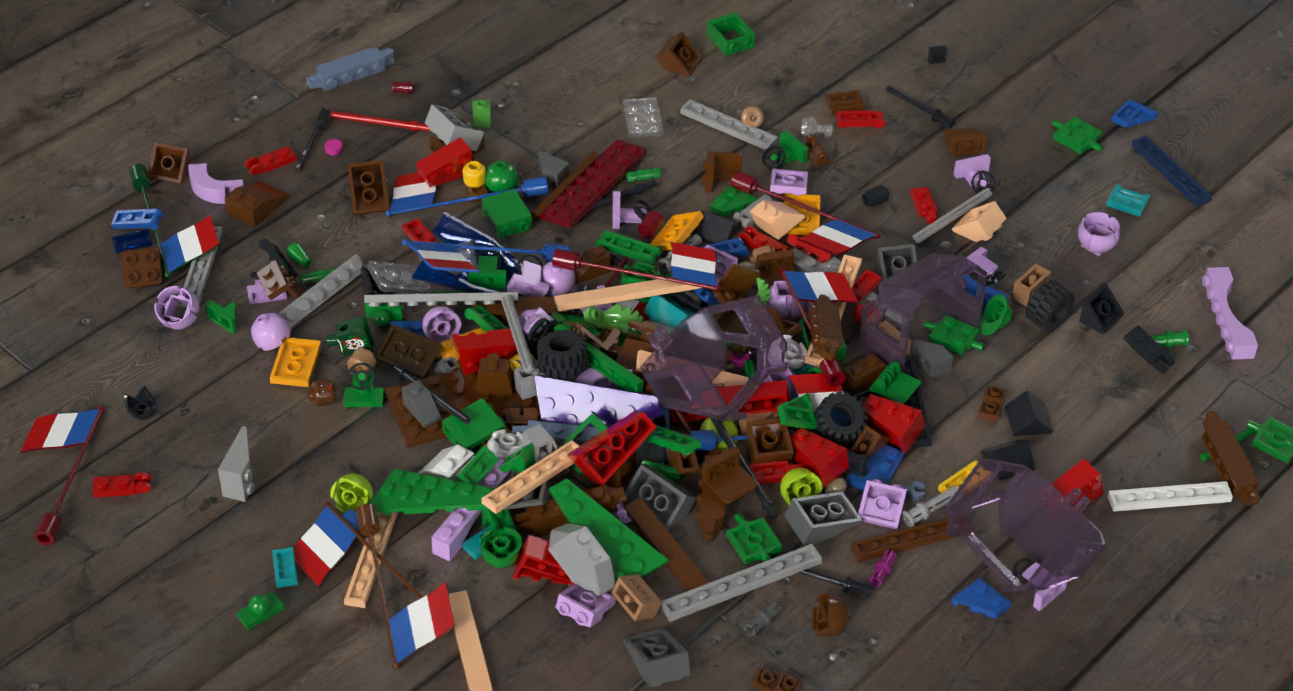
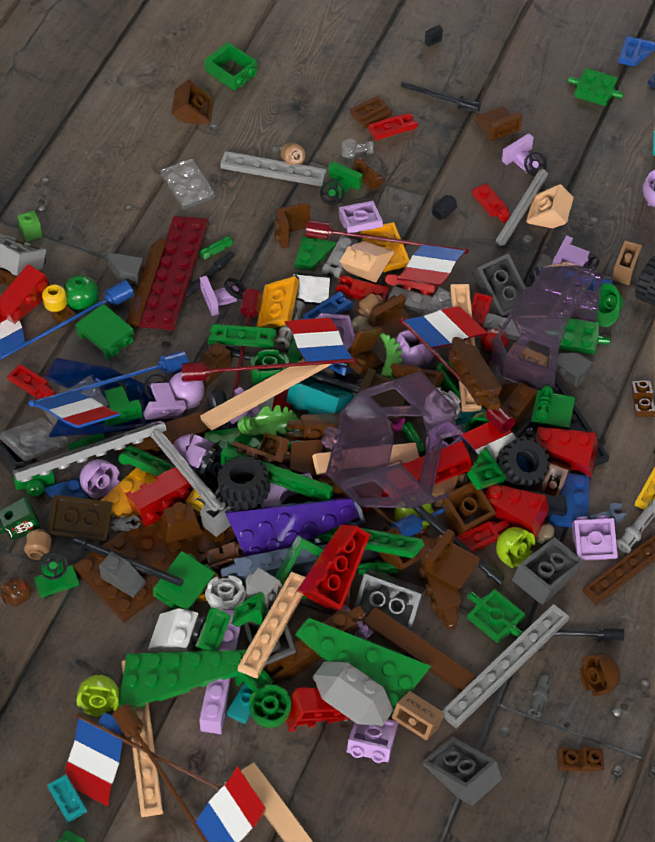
camera: 20 degrees left, 10 degrees up
(882, 568) = (623, 605): magenta pin -> none

